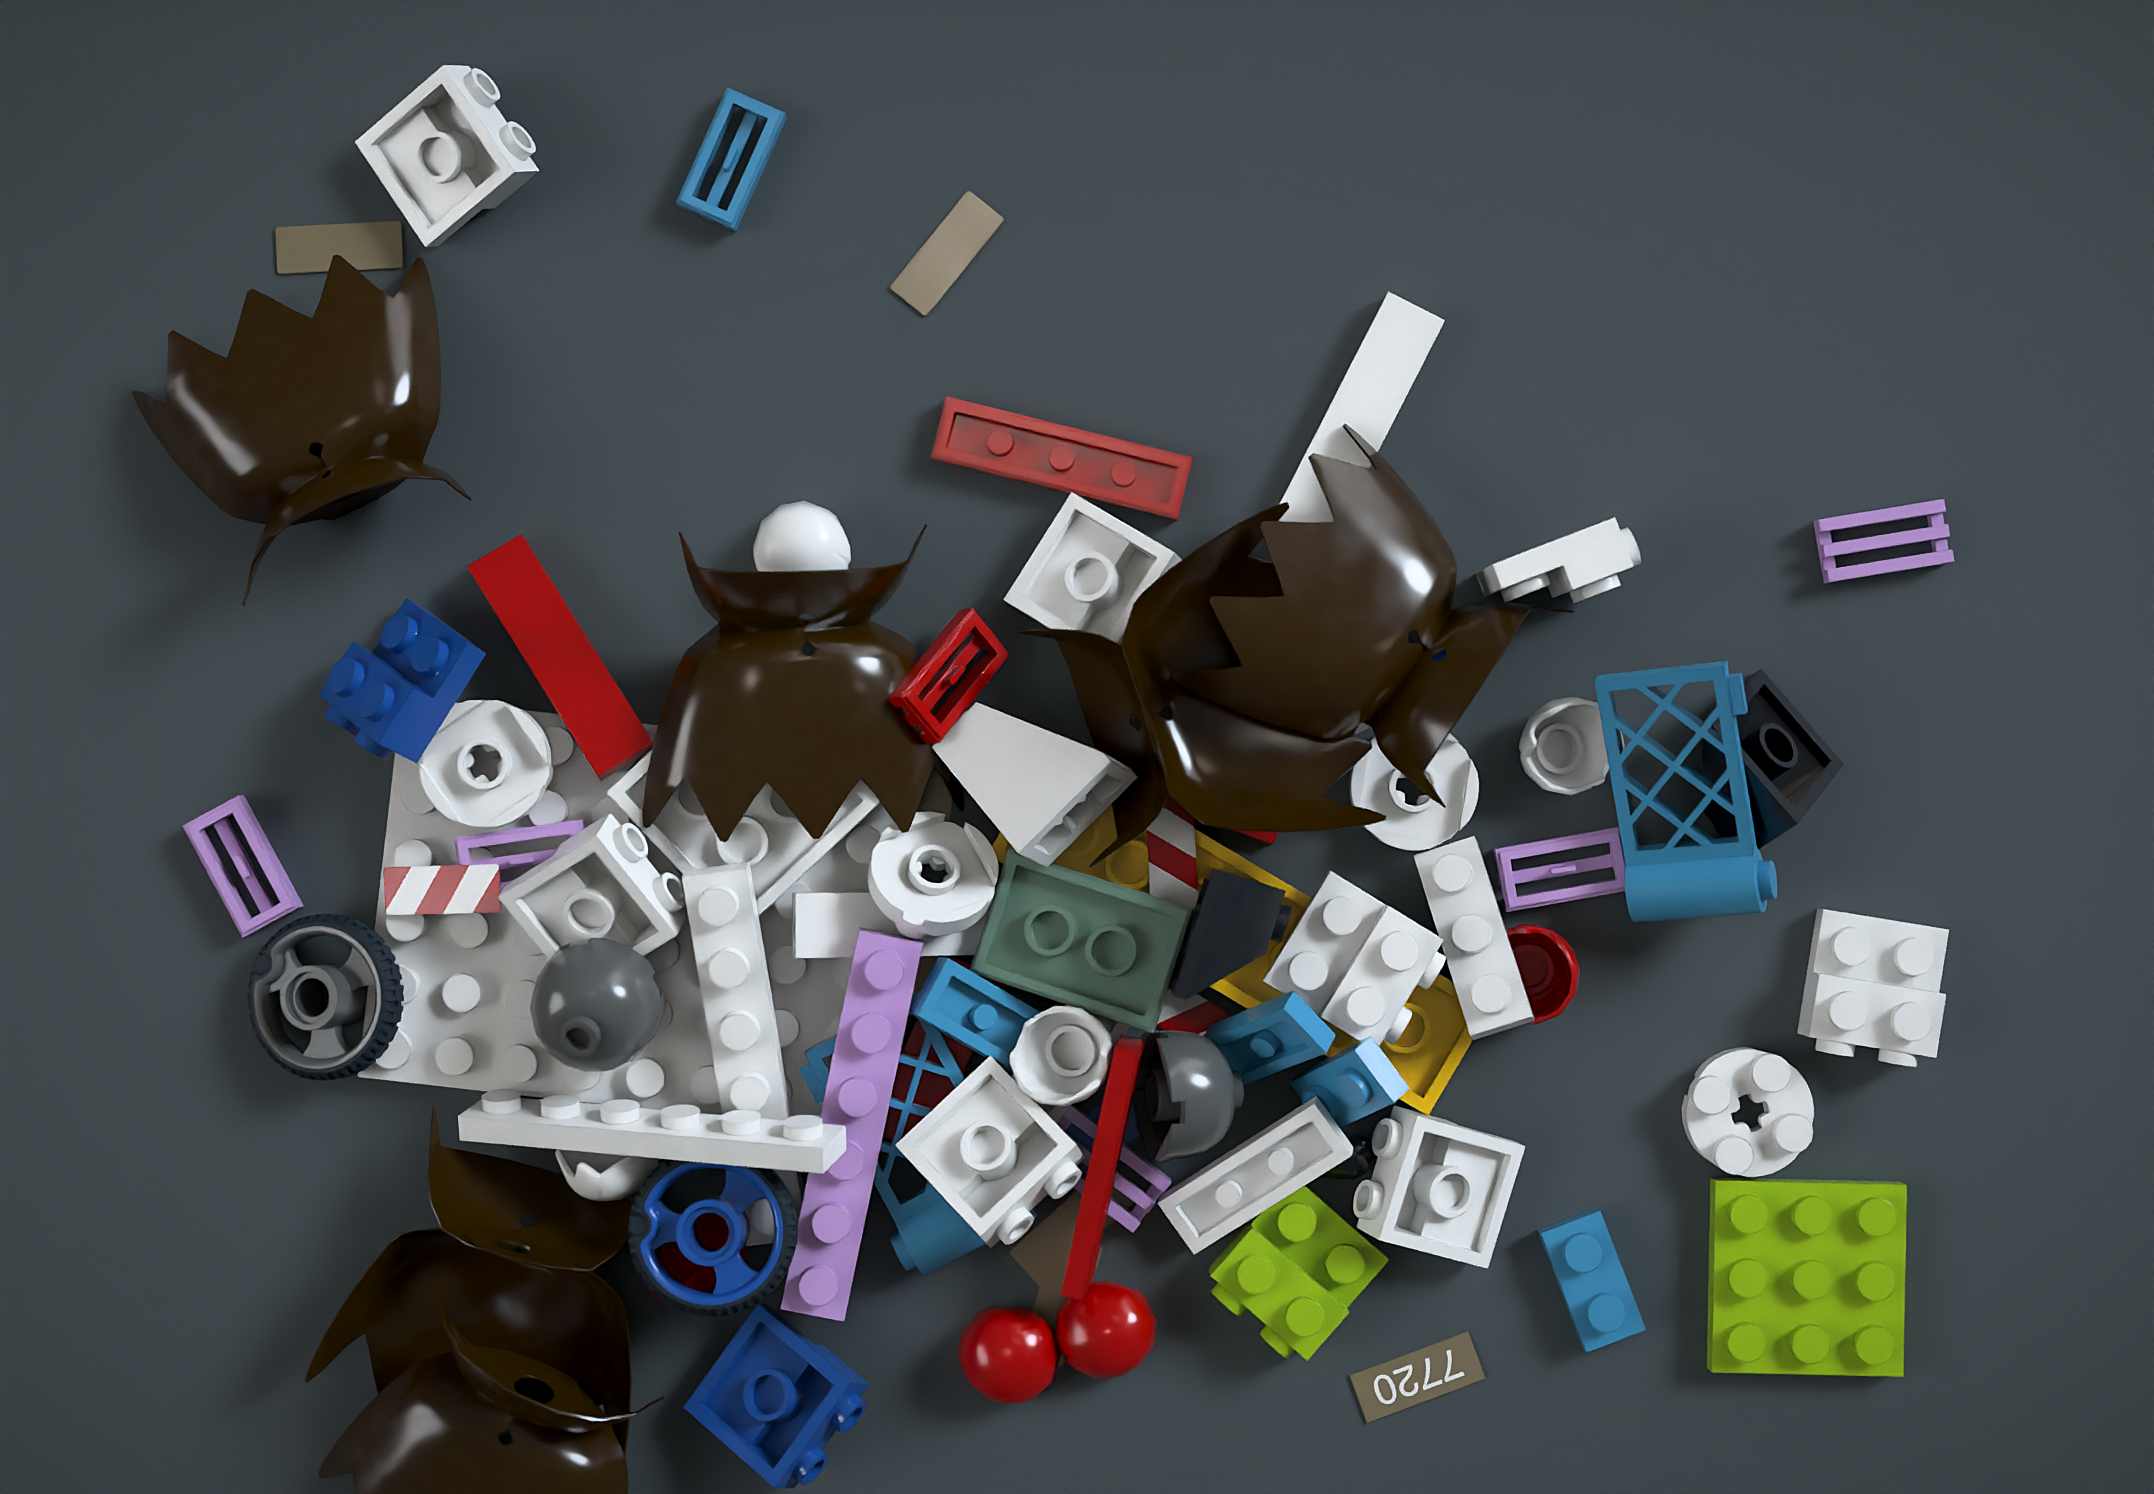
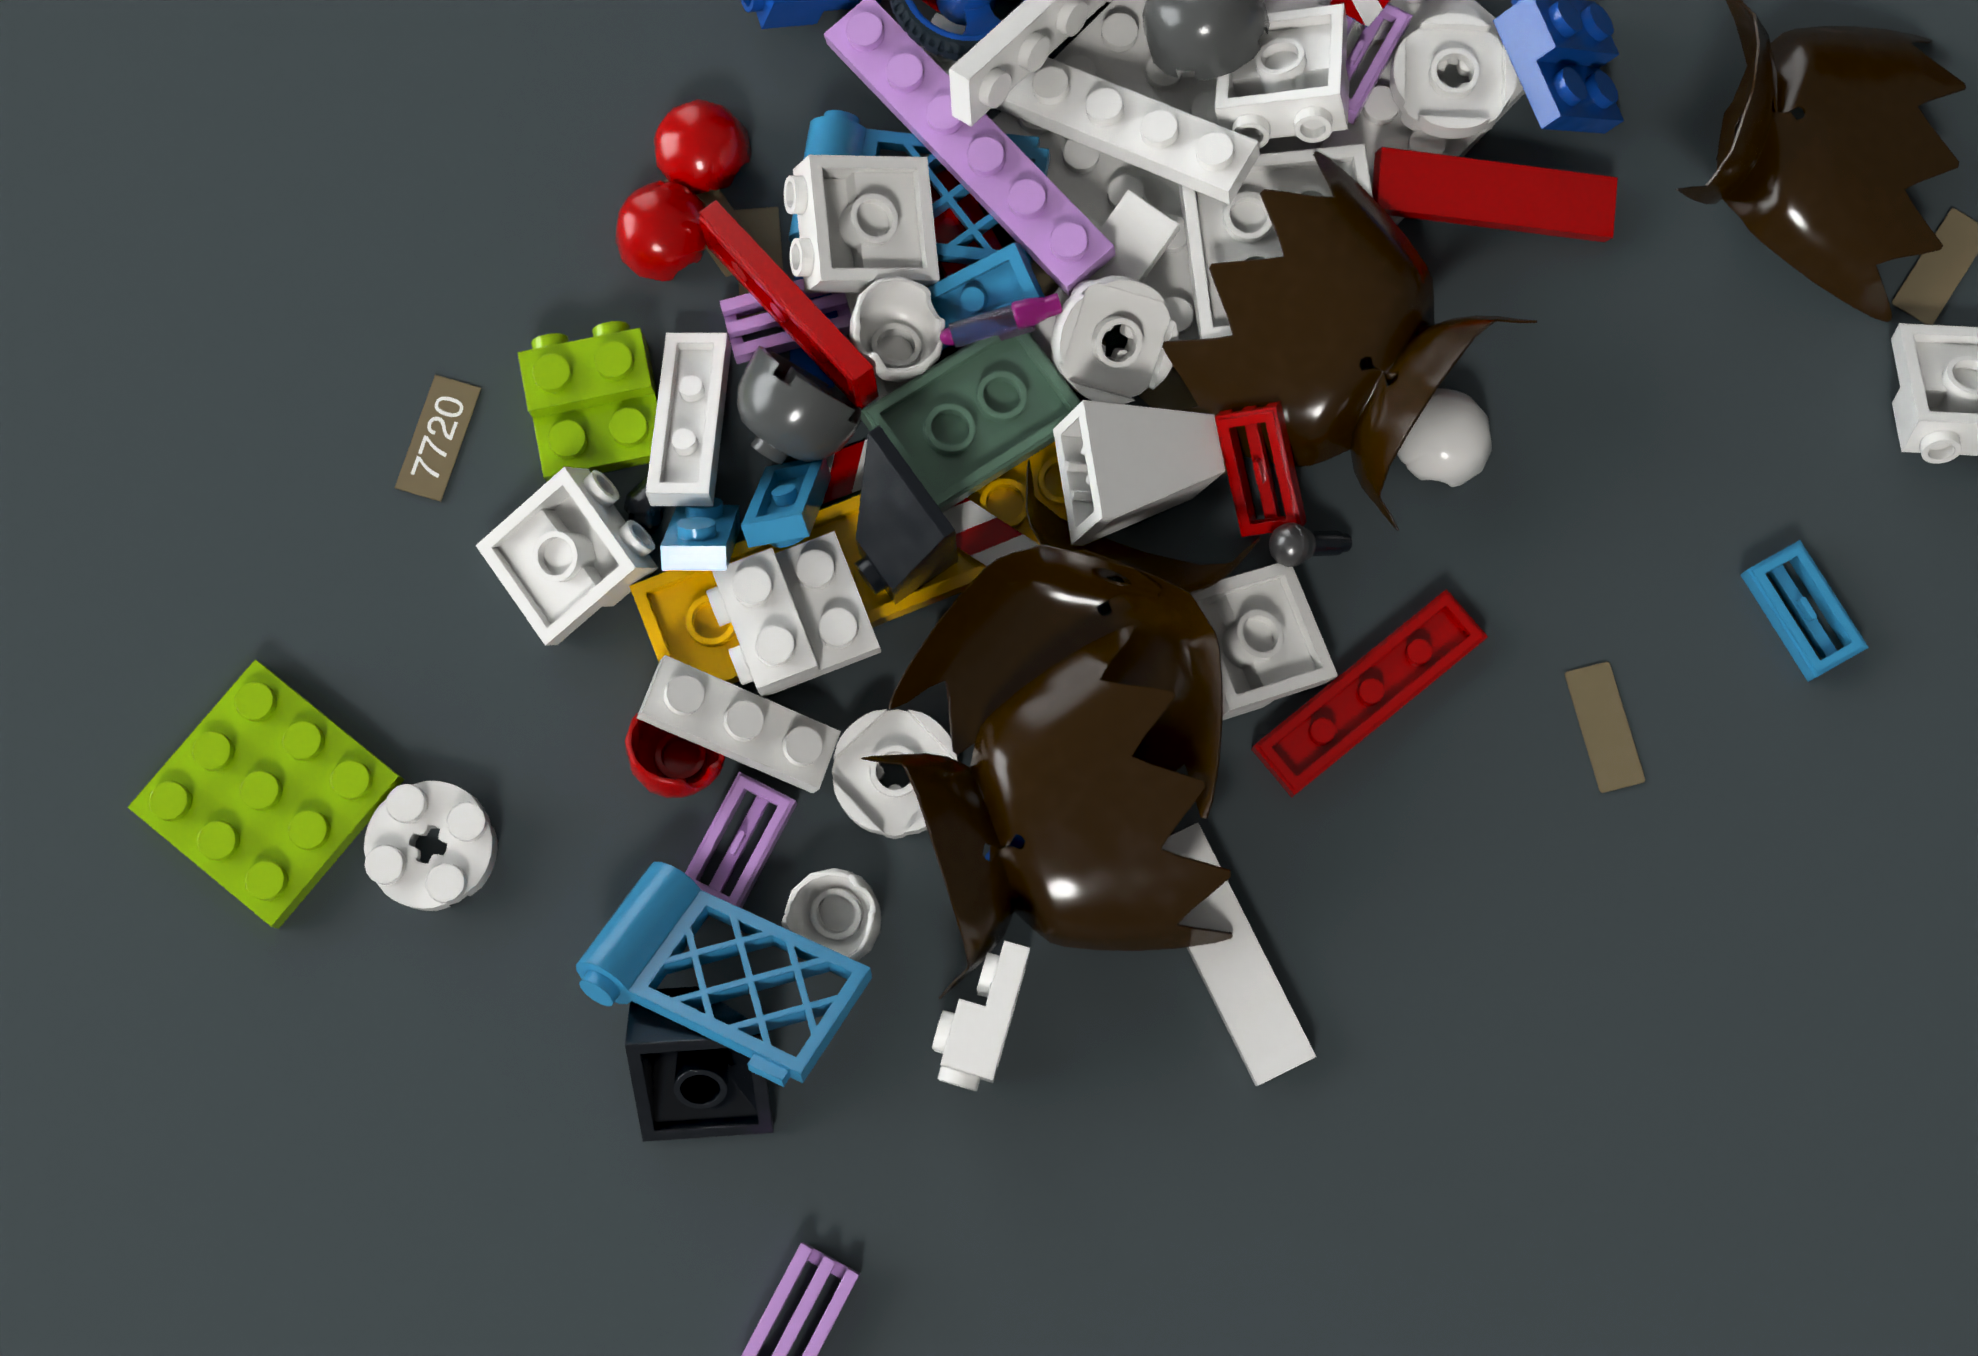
camera: 135 degrees right, 10 degrees down
(989, 971) = (1005, 321): none -> piece
(991, 603) = (1294, 544): none -> flat silver piece
(1591, 1279) = (402, 623): dark azure plate -> none
(1874, 987) = (445, 1023): white plate -> none

